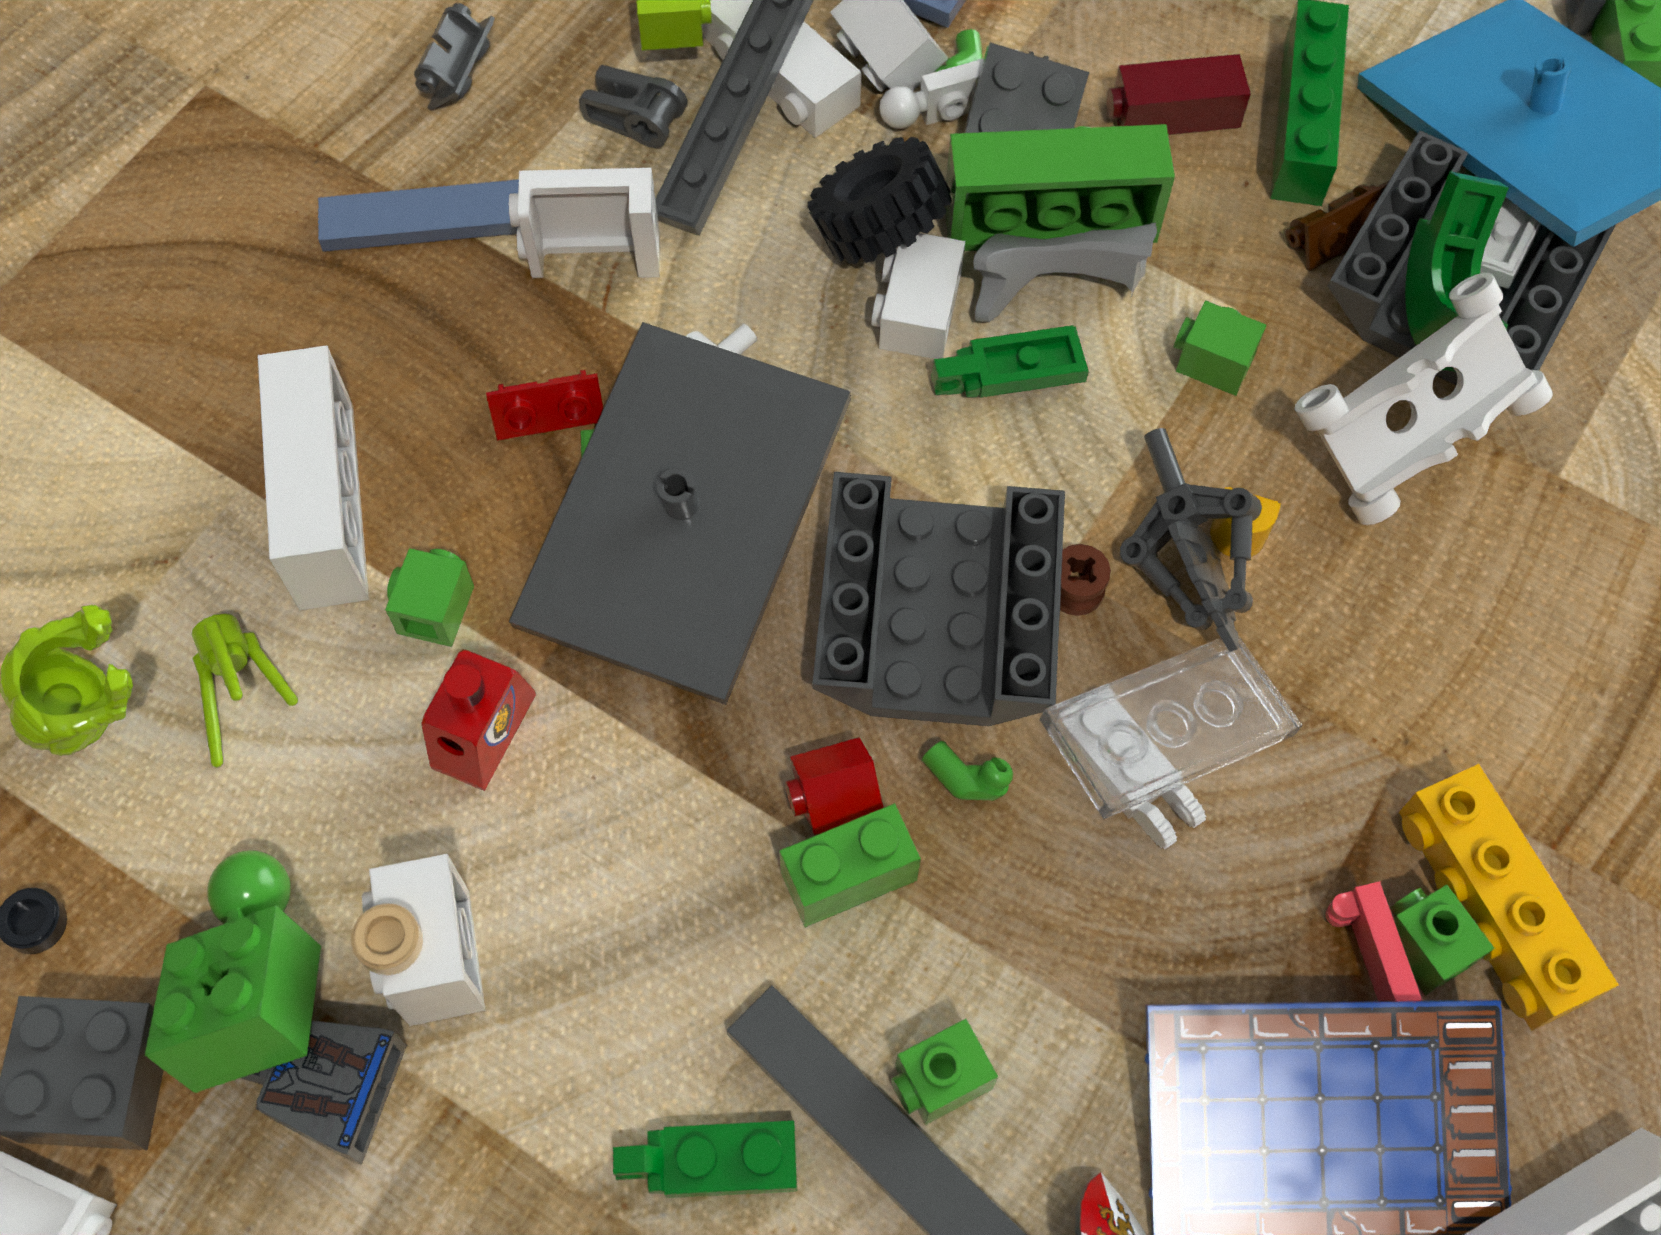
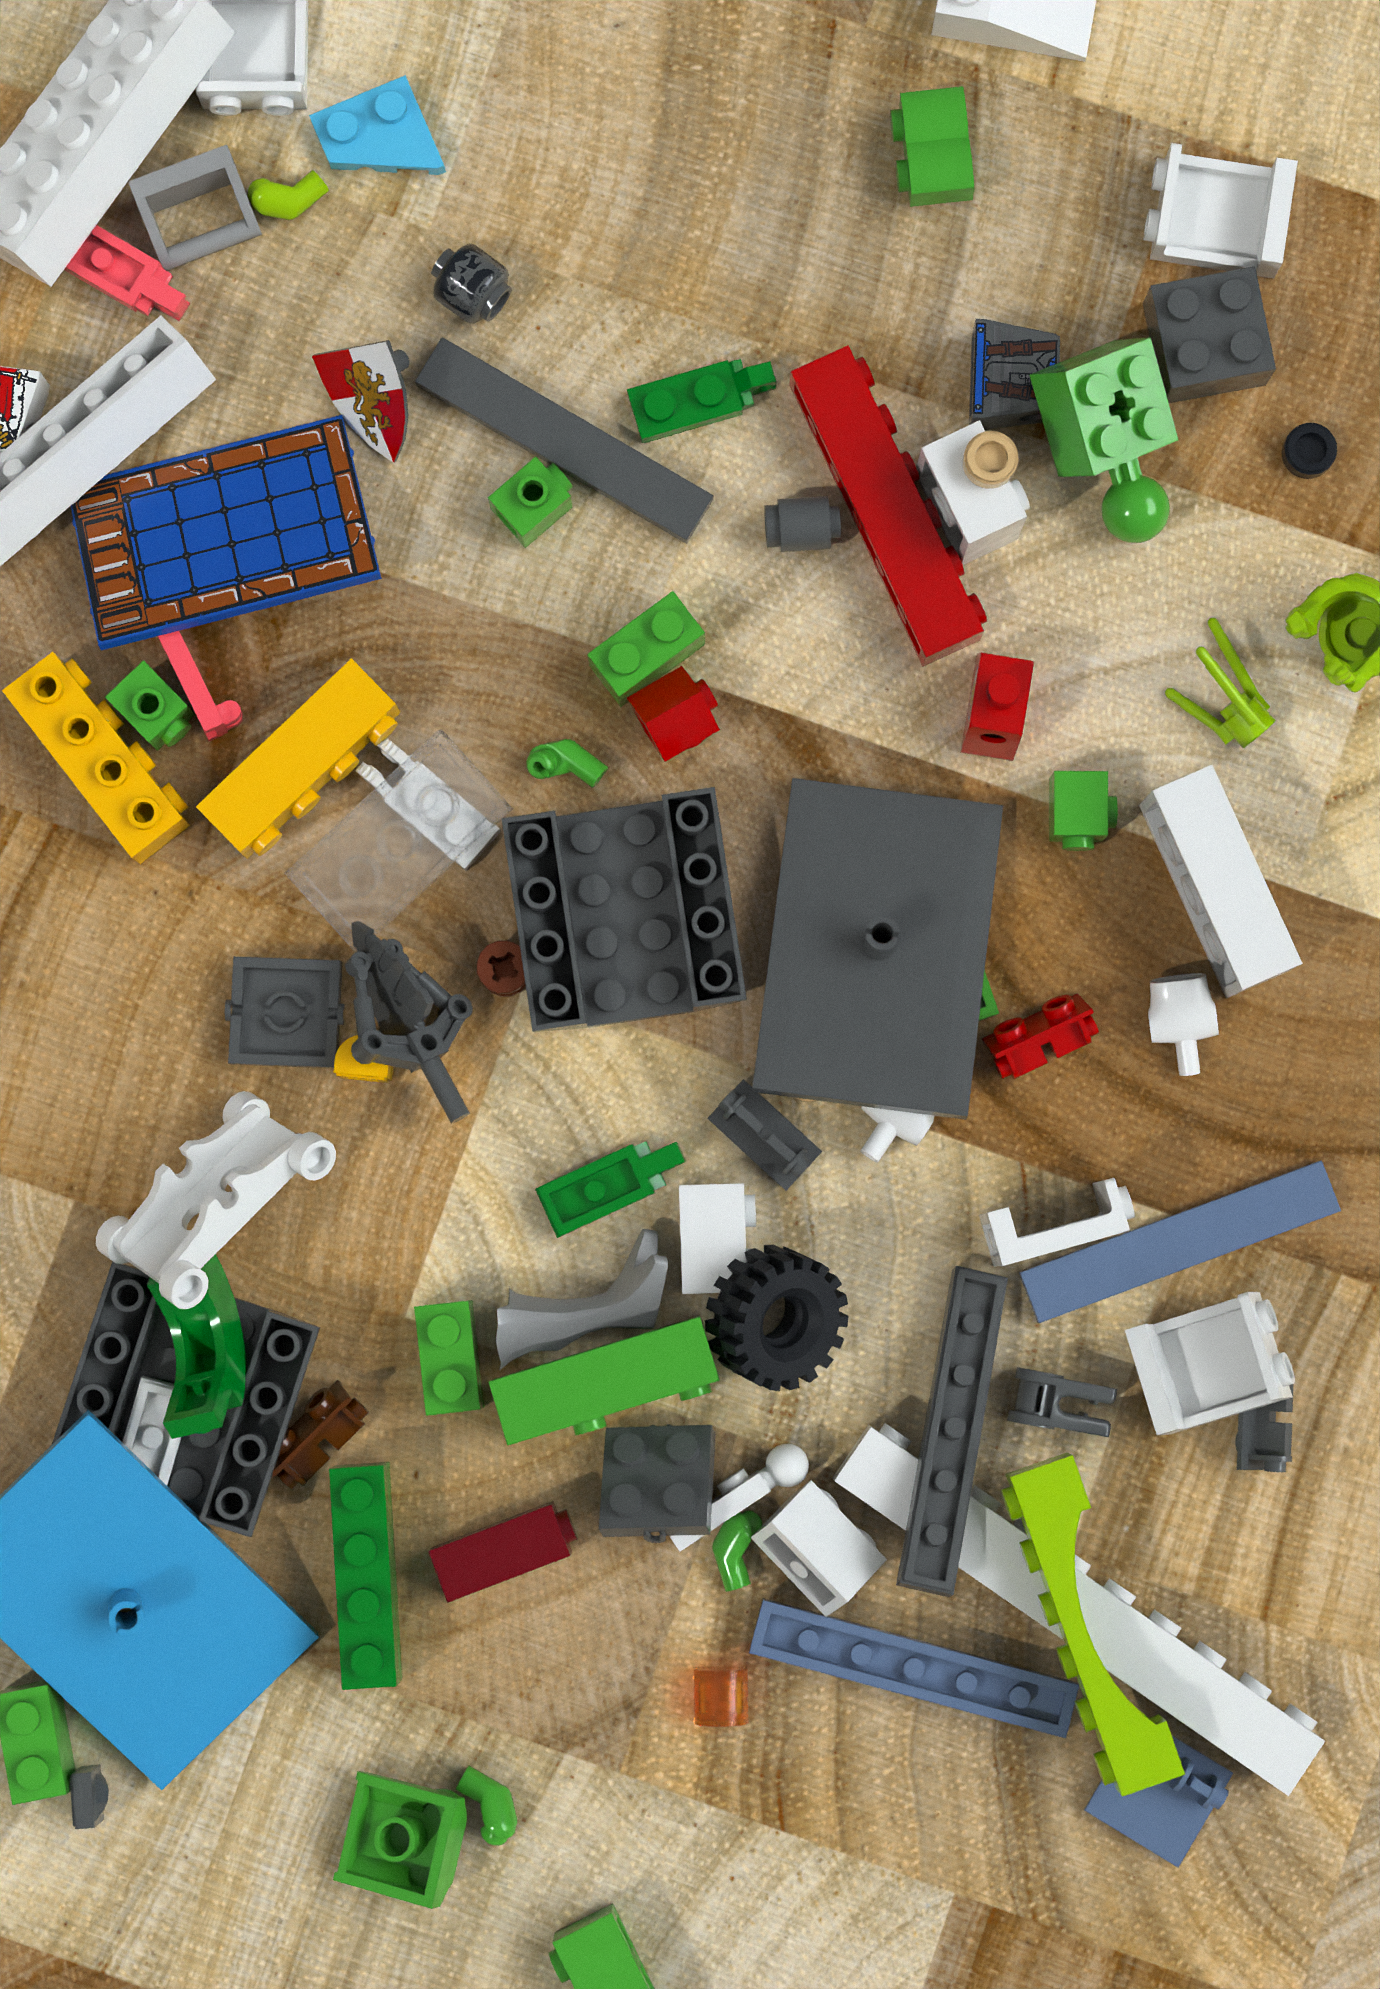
camera: 170 degrees right, 20 degrees up
(400, 390) = (1181, 1014): none -> white piece
(485, 93) = (1211, 1363): none -> white panel
(530, 973) = (887, 506): none -> red brick
(633, 968) = (802, 524): none -> dark grey brick
(838, 362) = (764, 1135): none -> dark grey hinge
(1201, 247) = (449, 1357): none -> bright green brick
(1218, 346) = (415, 1251): bright green brick -> none
(1269, 833) = (300, 759): none -> yellow brick
(1320, 590) = (285, 1012): none -> dark grey plate

